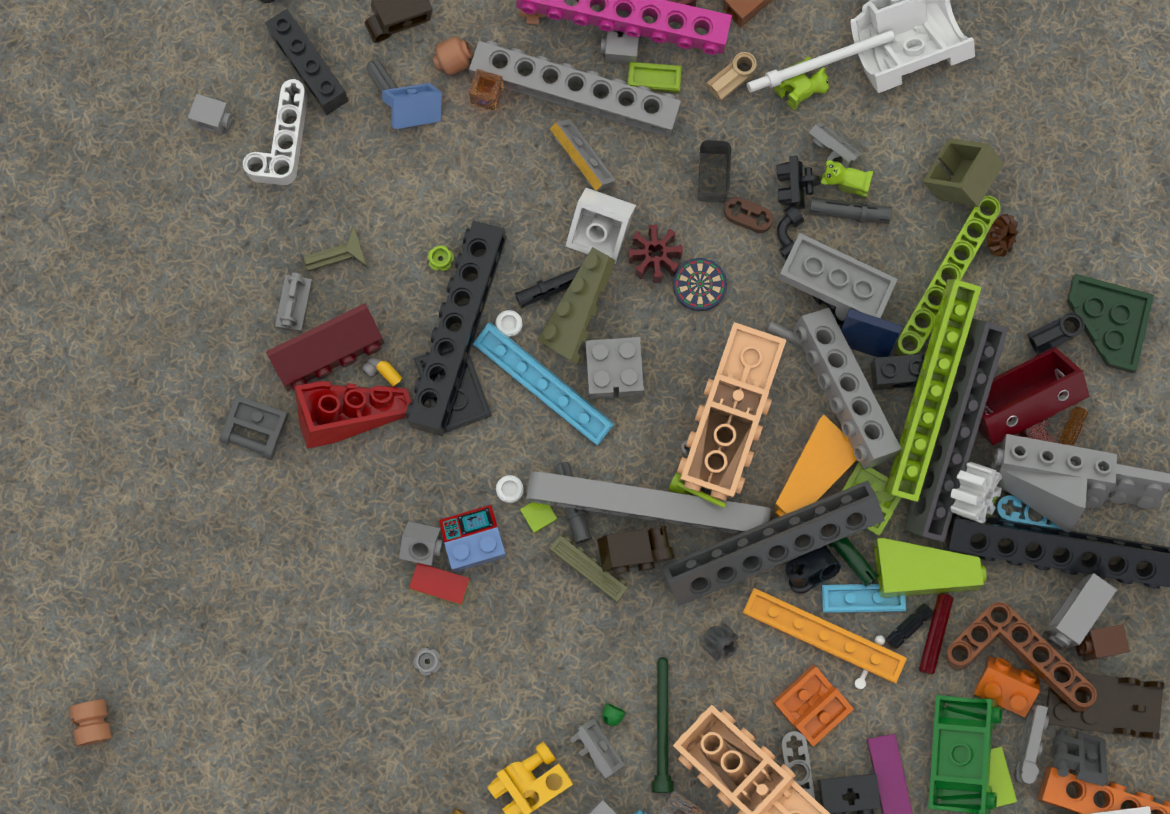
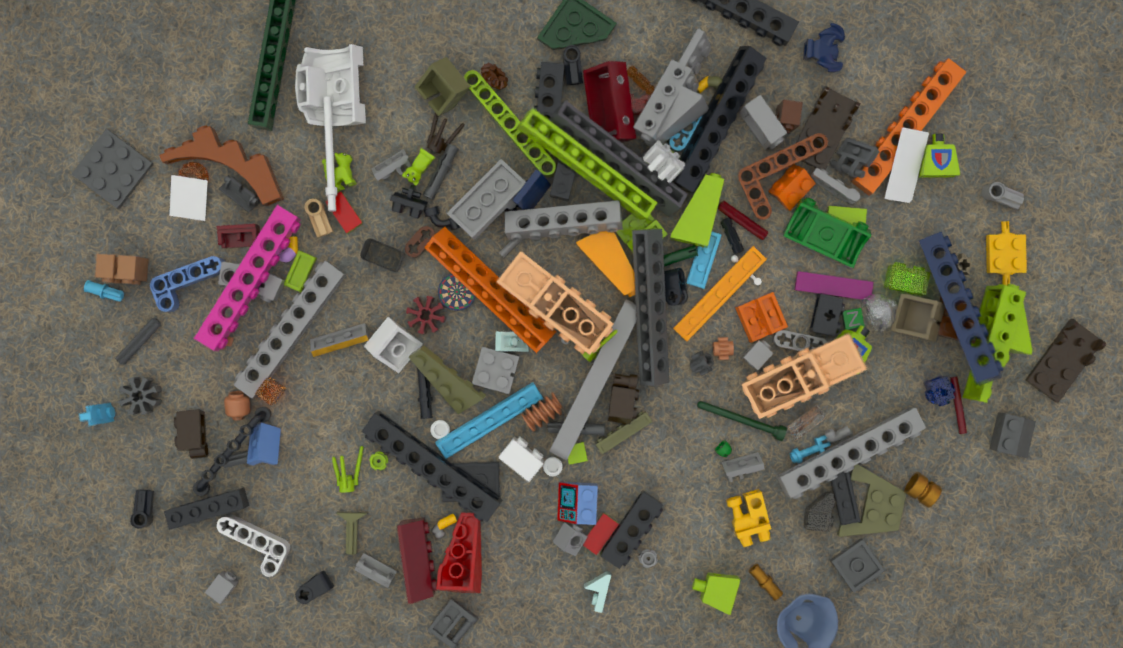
camera: 70 degrees left, 10 degrees up
(248, 232) = (315, 586): none -> black piece
(332, 47) = (202, 487): none -> black bar
(369, 608) = (599, 584): none -> light aqua slope
(398, 225) = (346, 482): none -> lime plant
(414, 772) = (718, 590): none -> lime torso
(420, 605) = (643, 502): none -> black brick
(508, 440) = (522, 458): none -> white brick
(578, 449) = (542, 412): none -> nougat piece
(659, 376) = (509, 342): none -> light aqua slope
(675, 57) = (291, 251): none -> arm
(725, 305) = (484, 285): none -> orange brick
(750, 109) = (346, 214): none -> red tile
(751, 664) = (723, 348): none -> nougat gear
(760, 716) = (757, 354): none -> light grey brick
(886, 191) = (435, 142): none -> dark brown plant
(1034, 301) = (552, 72): none -> black brick
(1105, 520) = (709, 81): none -> arm

